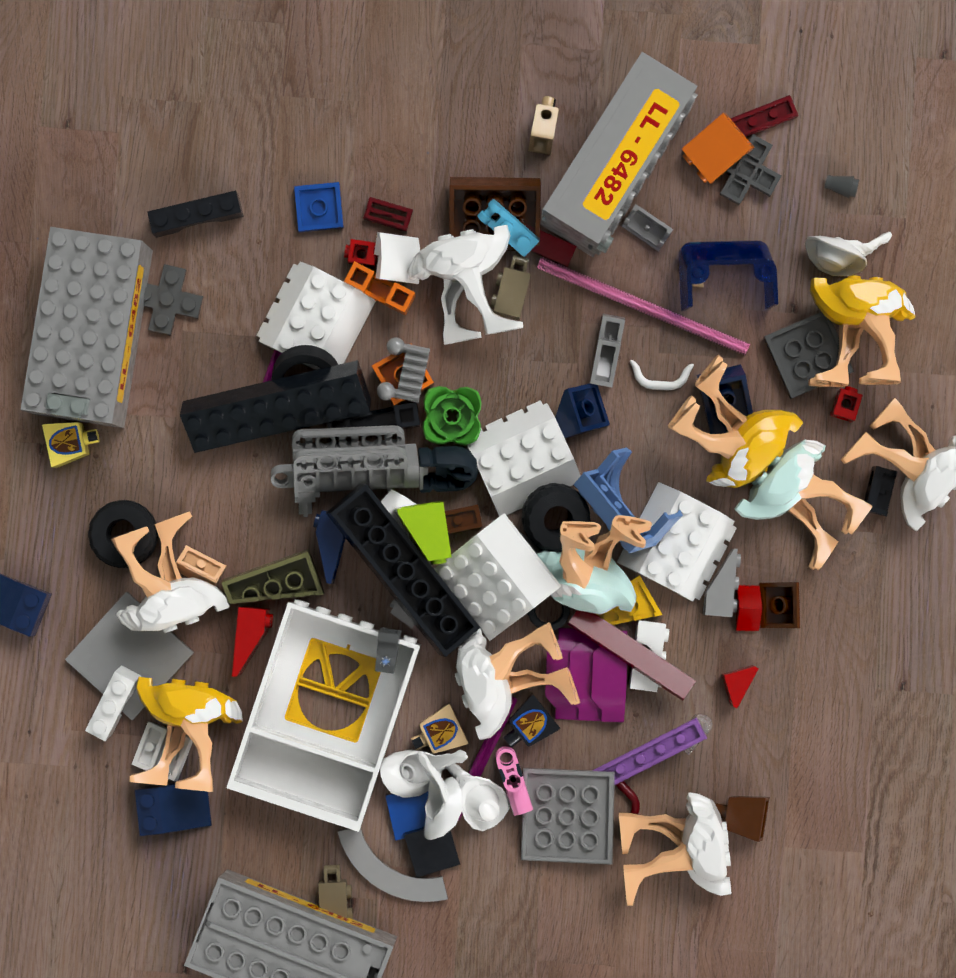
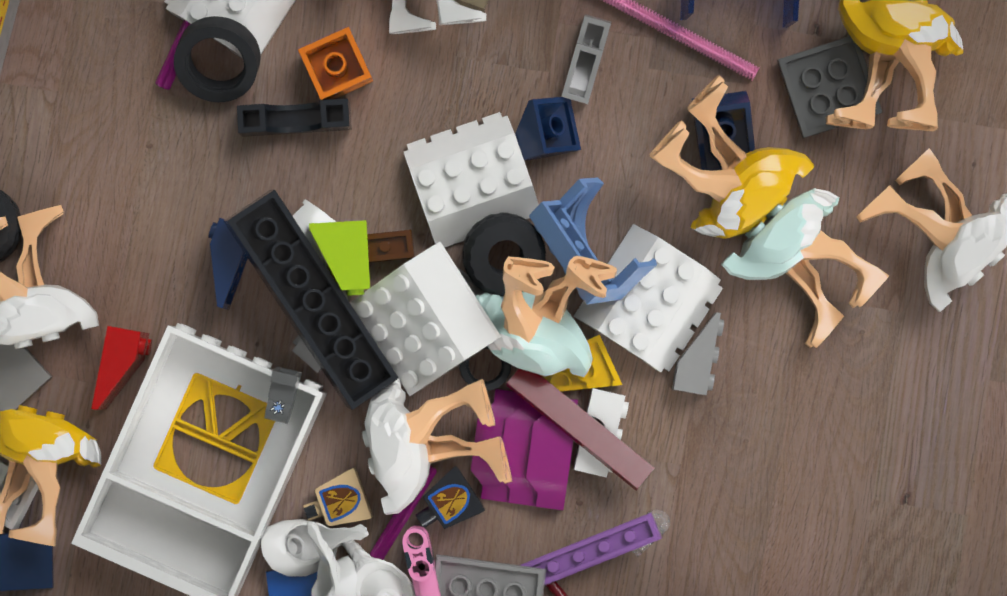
camera: 10 degrees right, 0 degrees up
(197, 565) = (68, 273): light nougat slope -> none
(276, 406) = (177, 87): black brick -> none
(279, 579) = (166, 297): olive wedge -> none
(377, 463) = (293, 168): light grey piece -> none
(412, 372) = (346, 61): light grey gear -> none
(463, 401) = (374, 104): bright green brick -> none
(660, 385) = (646, 107): white animal -> none
(737, 683) = (705, 476): red slope -> none
(748, 608) = (727, 386): red slope -> none
(780, 605) = (765, 386): reddish brown slope -> none
(848, 414) = (879, 144): red brick -> none
(880, 489) = (901, 258): black hinge -> none

